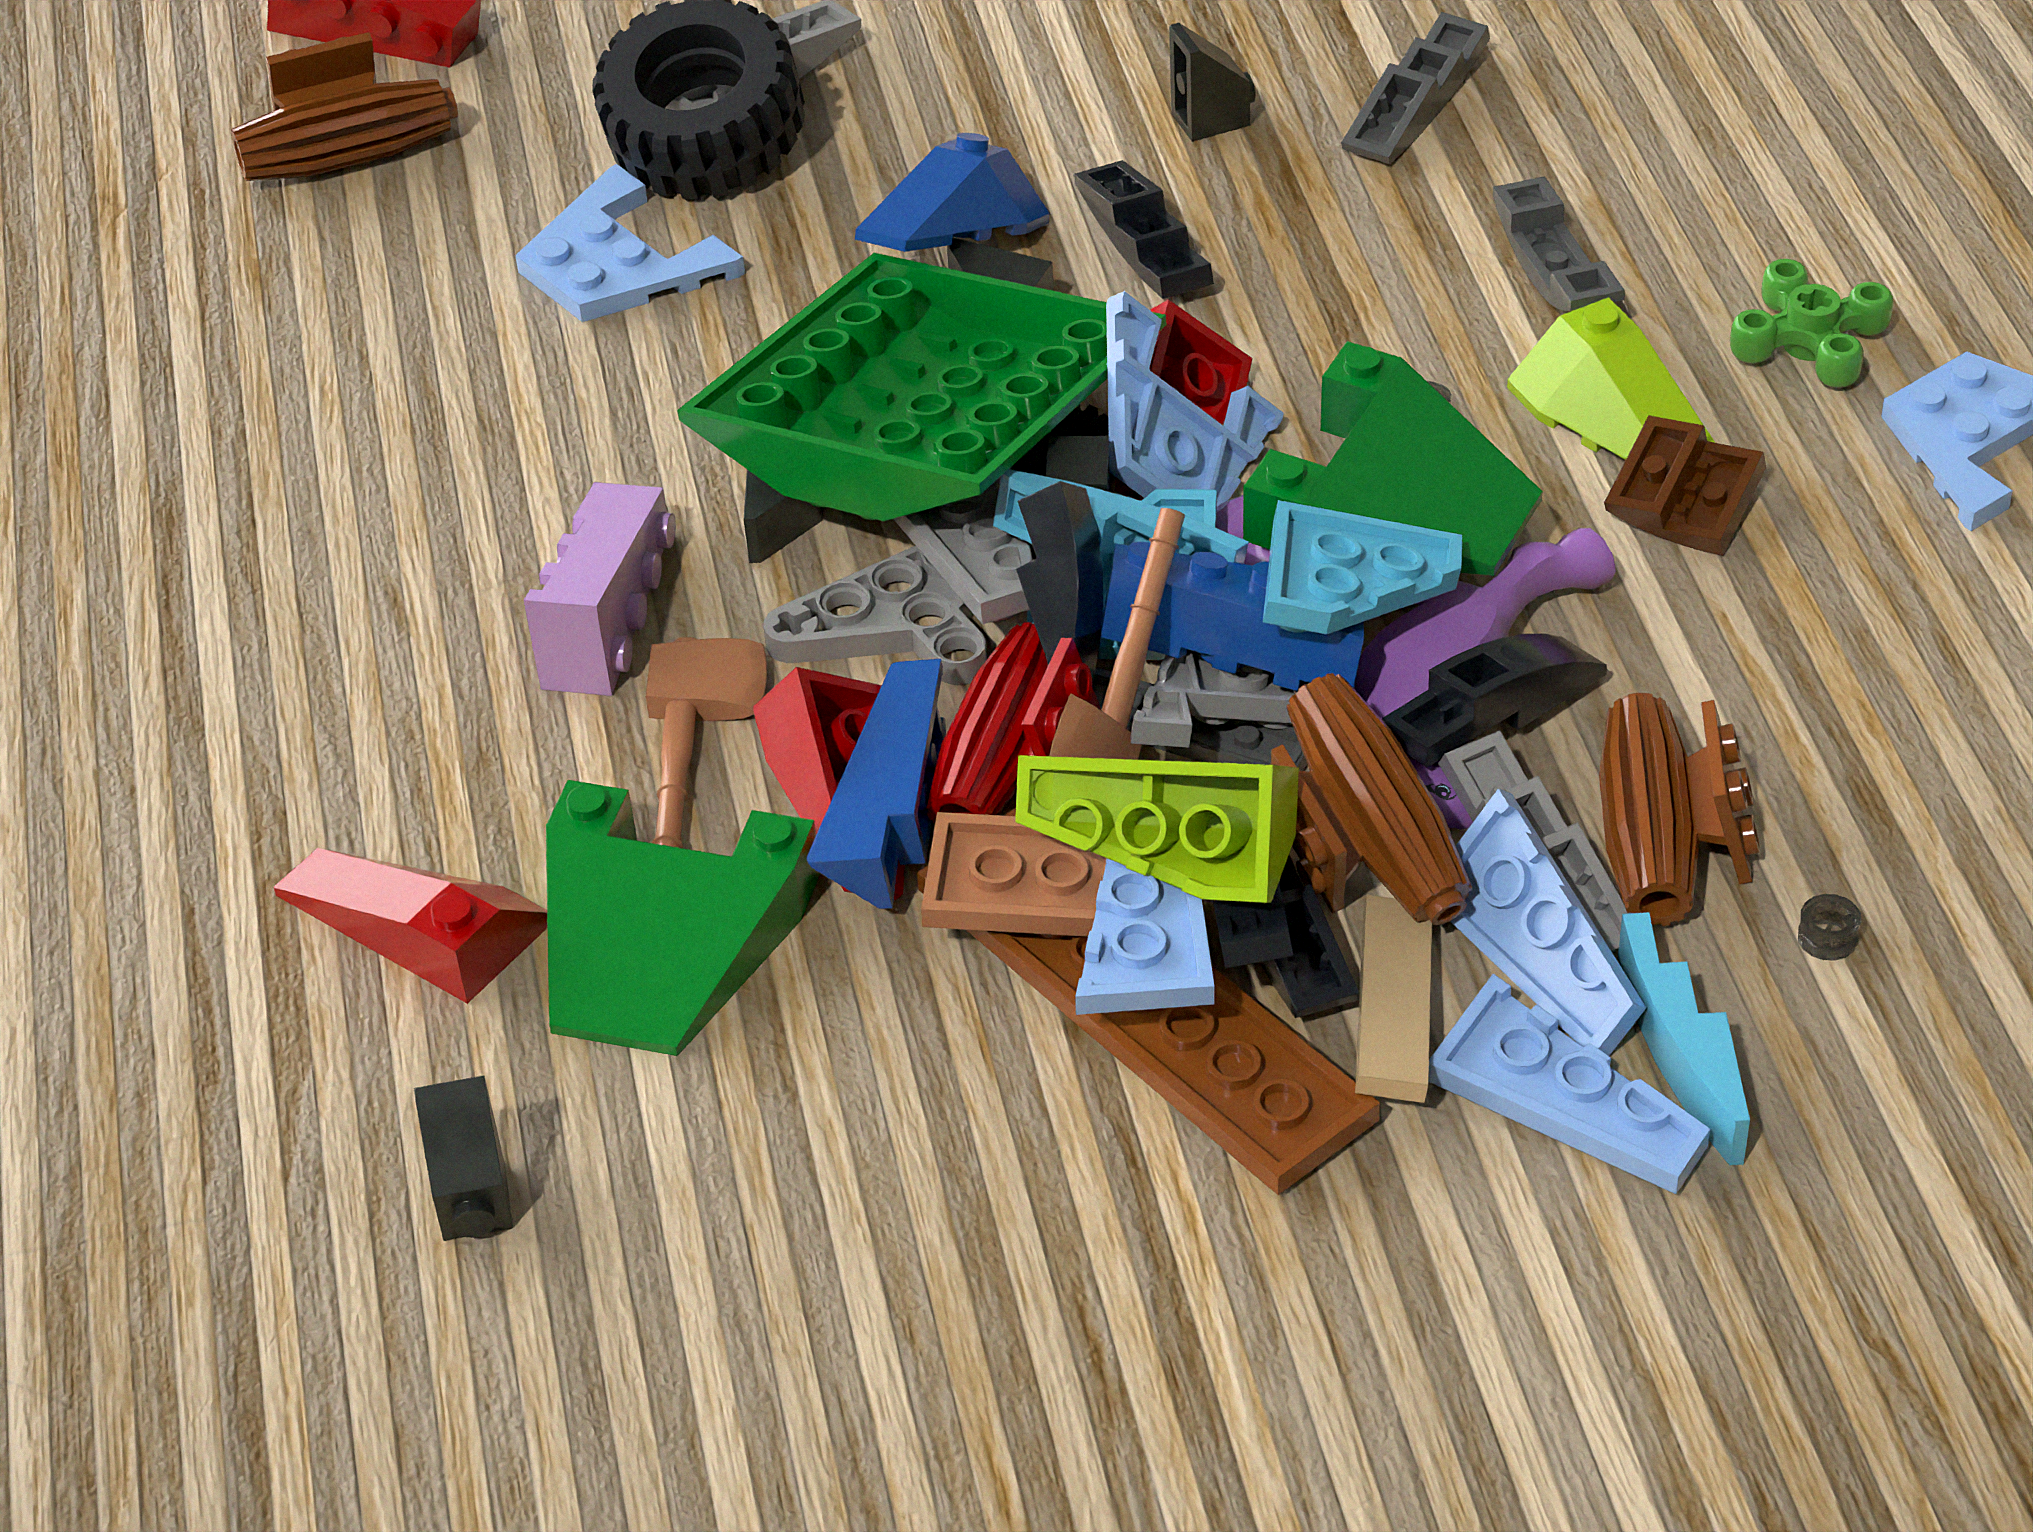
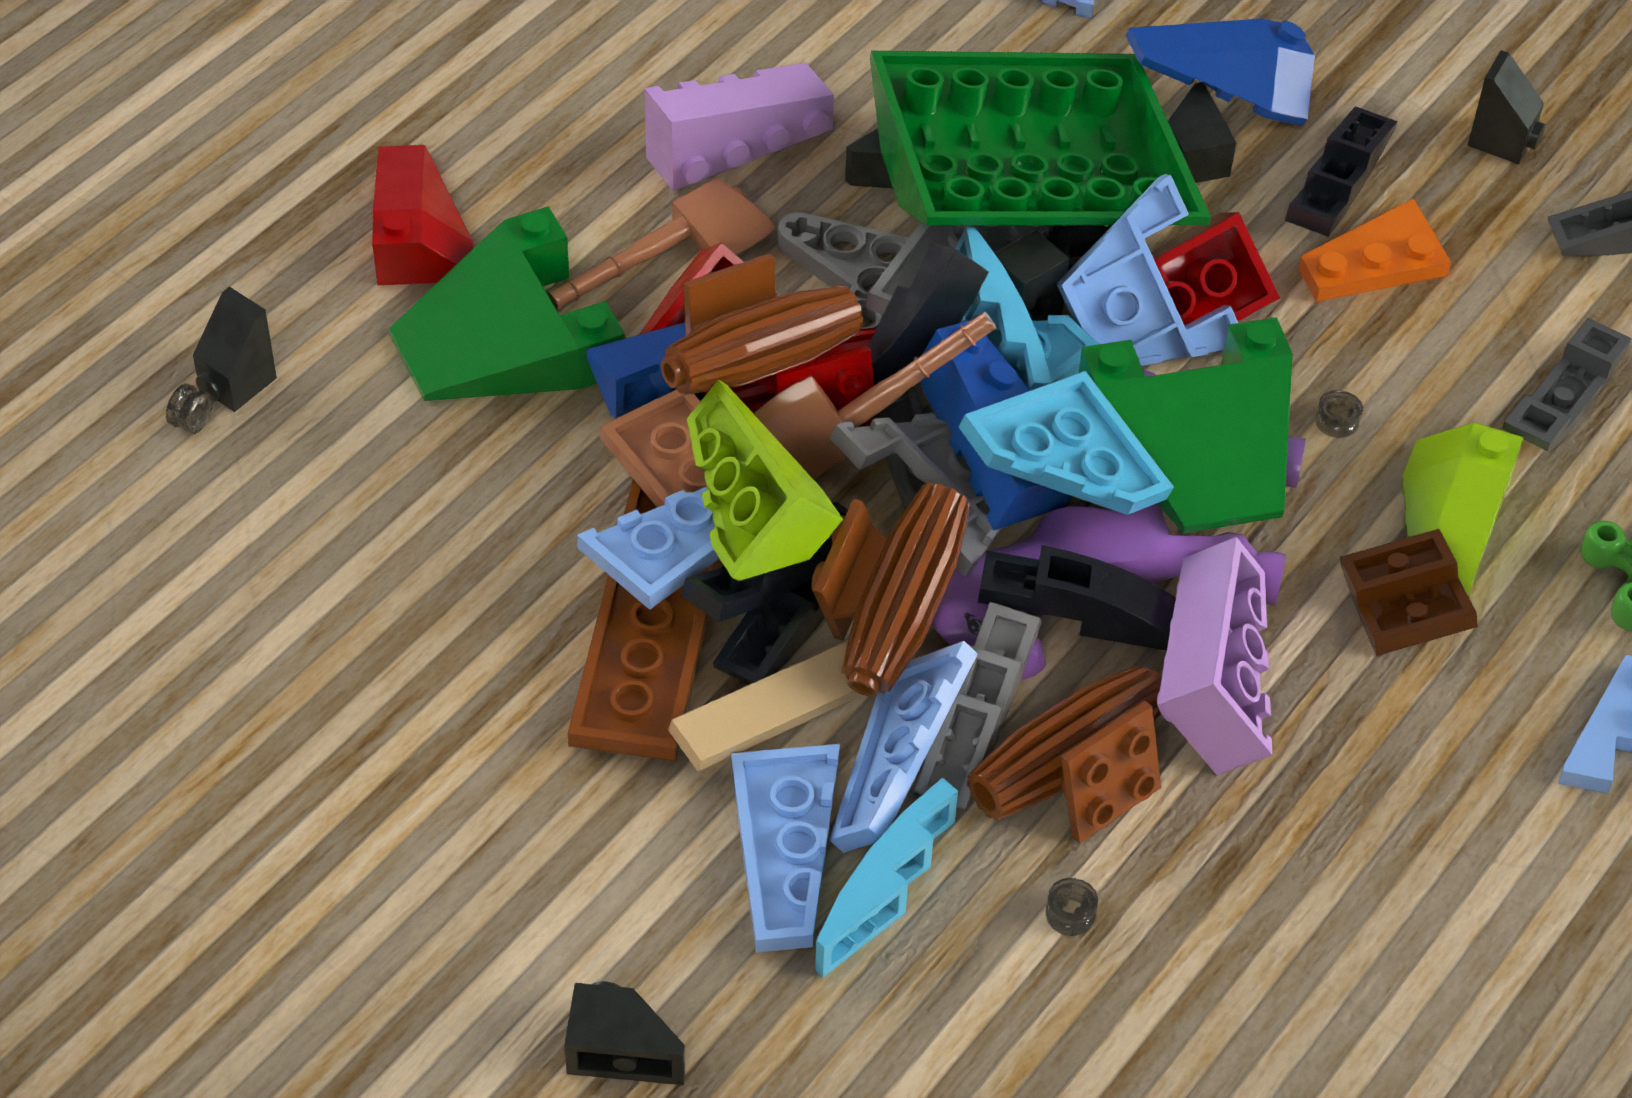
camera: 45 degrees right, 5 degrees up
(484, 1255) = (189, 408): none -> clear smoke bush
(969, 715) = (747, 333): none -> dark orange plate
(1265, 271) = (1376, 255): none -> orange wing
(1656, 638) = (1218, 657): none -> lavender wedge
(1699, 1354) = (620, 1037): none -> pearl dark grey slope

